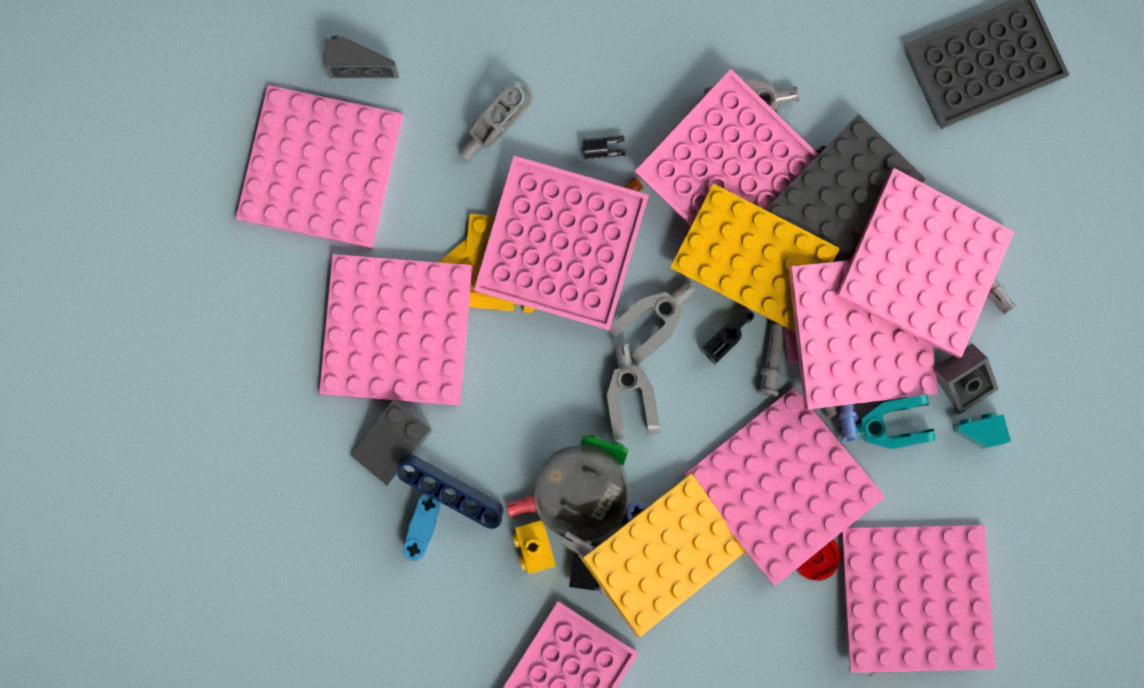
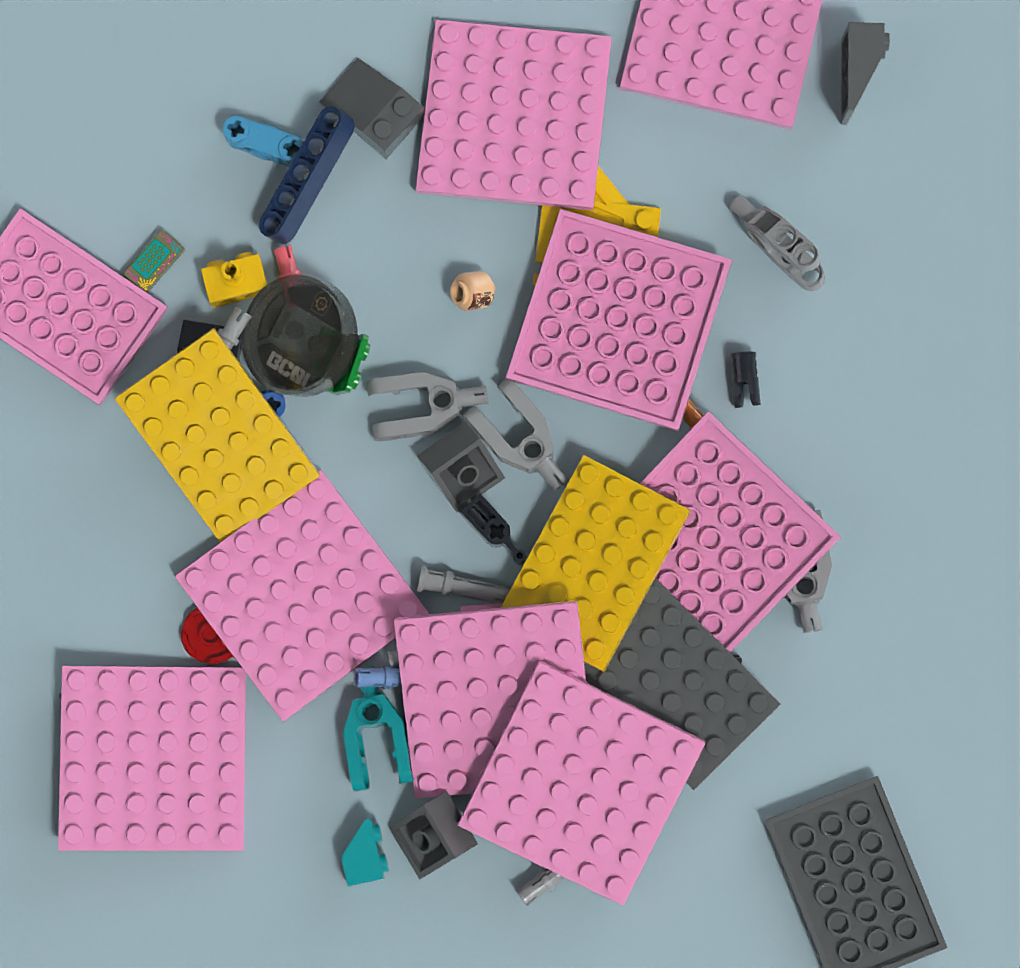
camera: 90 degrees right, 0 degrees up
(520, 613) = (154, 261): none -> tile
(540, 358) = (472, 290): none -> light nougat head
(678, 364) = (461, 466): none -> dark grey slope

